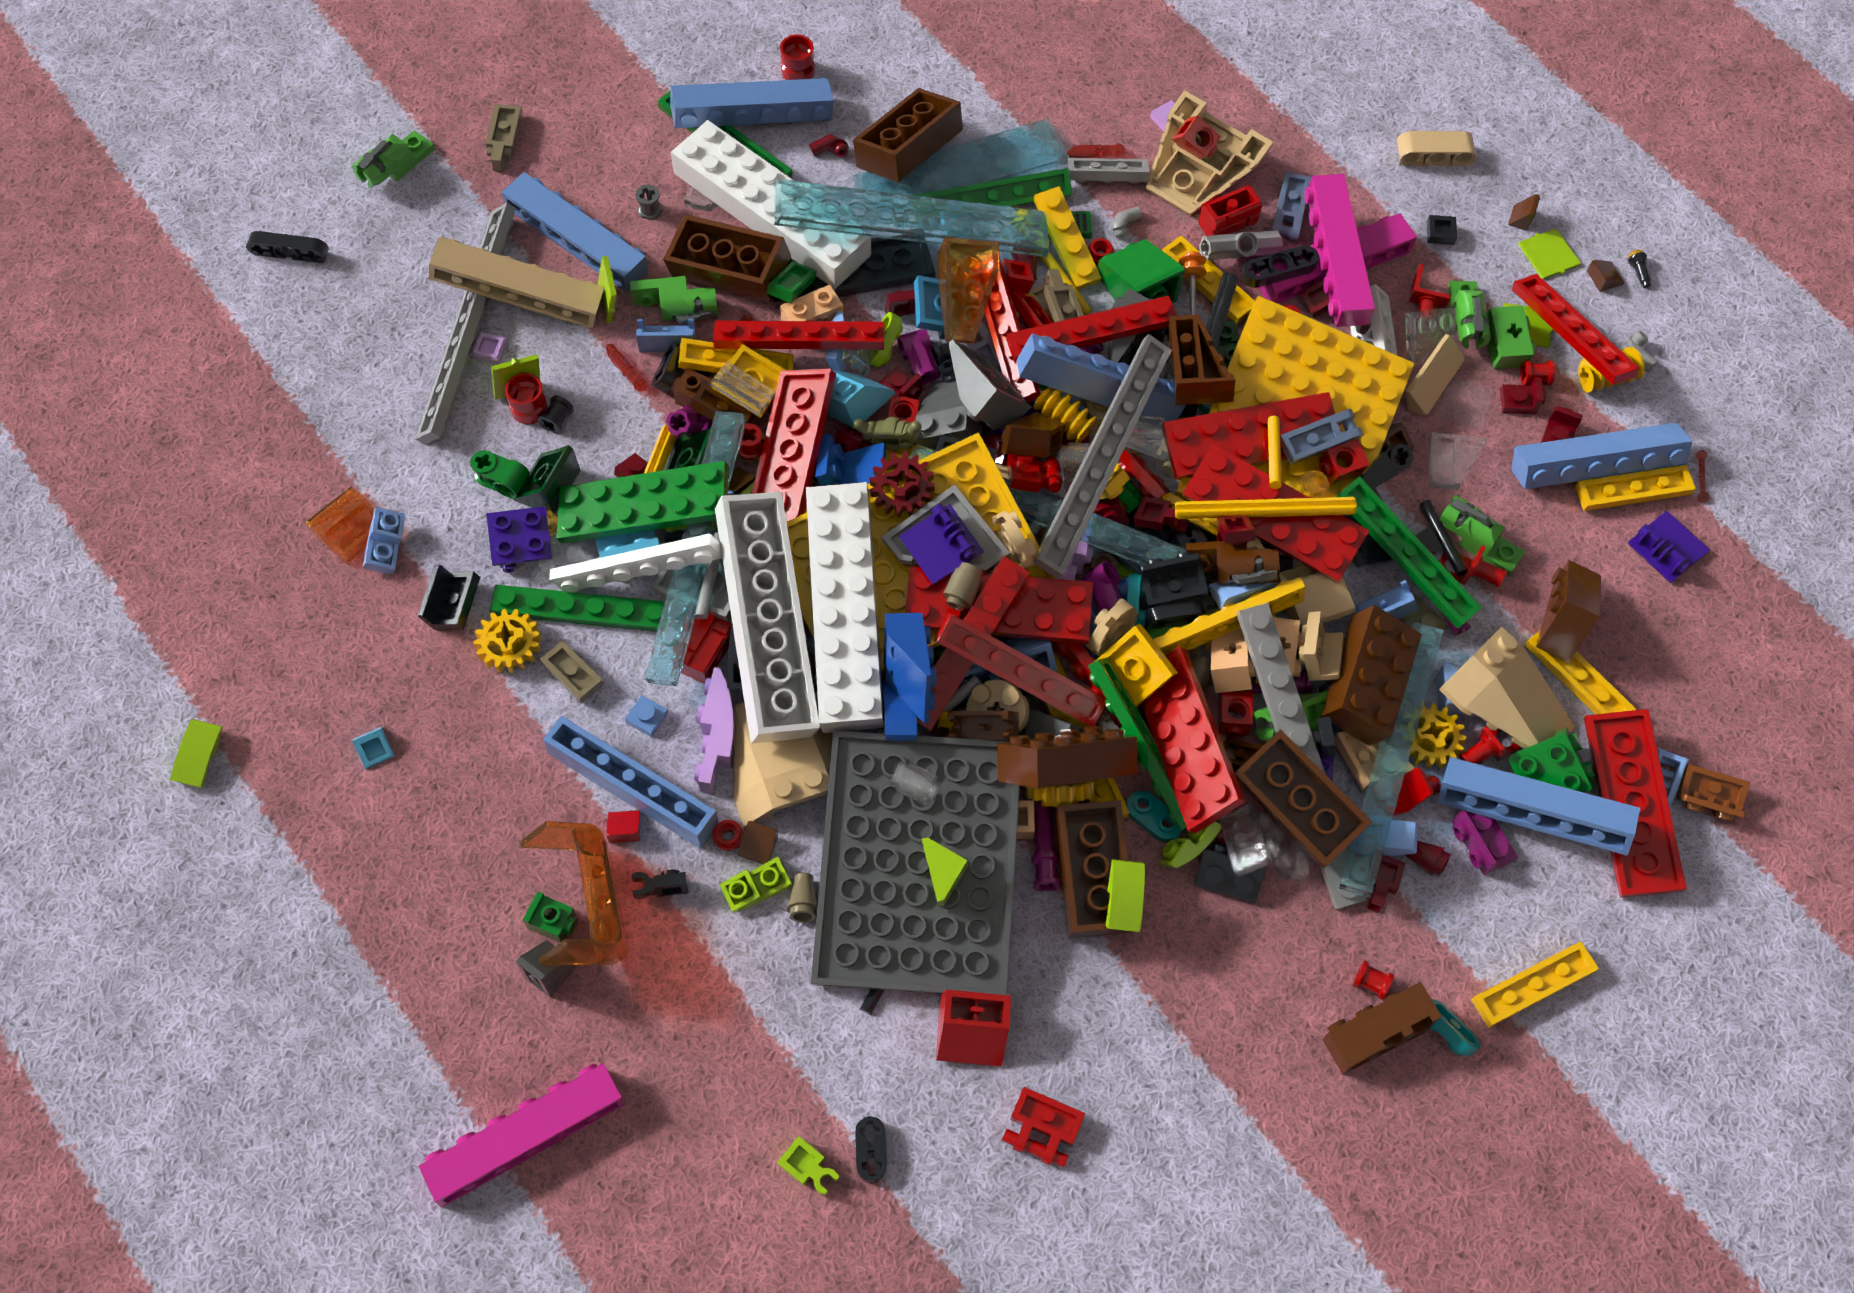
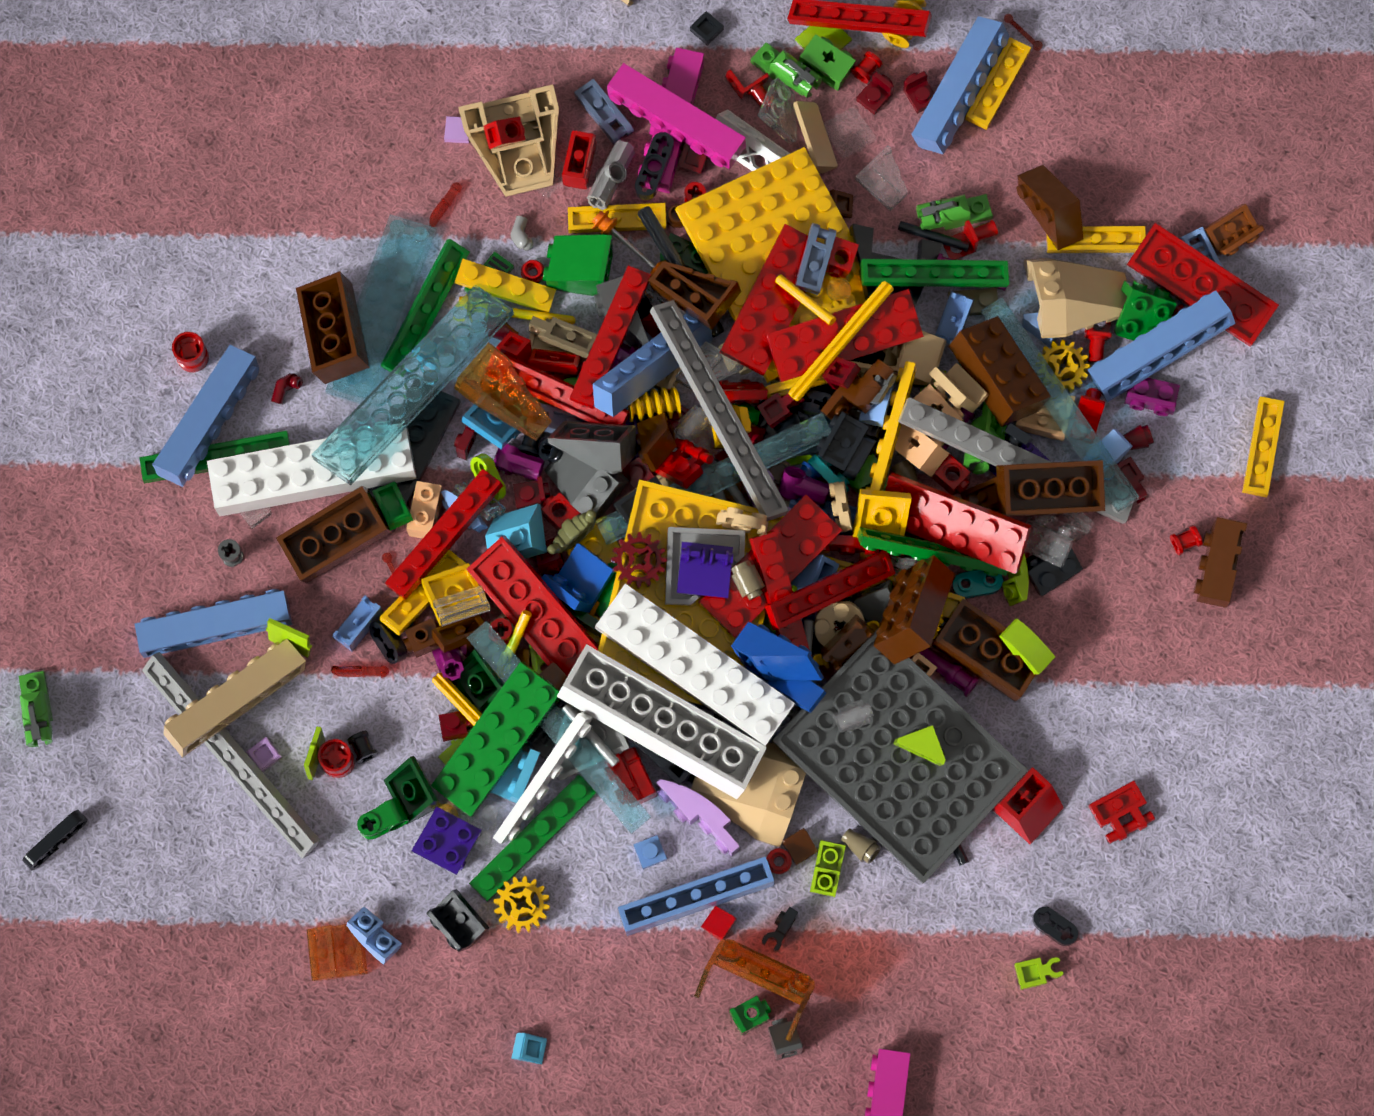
camera: 45 degrees left, 10 degrees up
(503, 134) = (76, 613): dark tan hinge -> none
(572, 672) = (578, 878): dark tan plate -> none
(675, 299) = (335, 595): bright green plate -> none
(757, 452) = (519, 631): none -> yellow bar
(1108, 170) = (470, 210): light grey plate -> none
(1406, 455) = (859, 211): black bush -> none
(1458, 1035) = (1257, 519): teal plate -> none
(1668, 546) = (1054, 101): dark purple hinge -> none

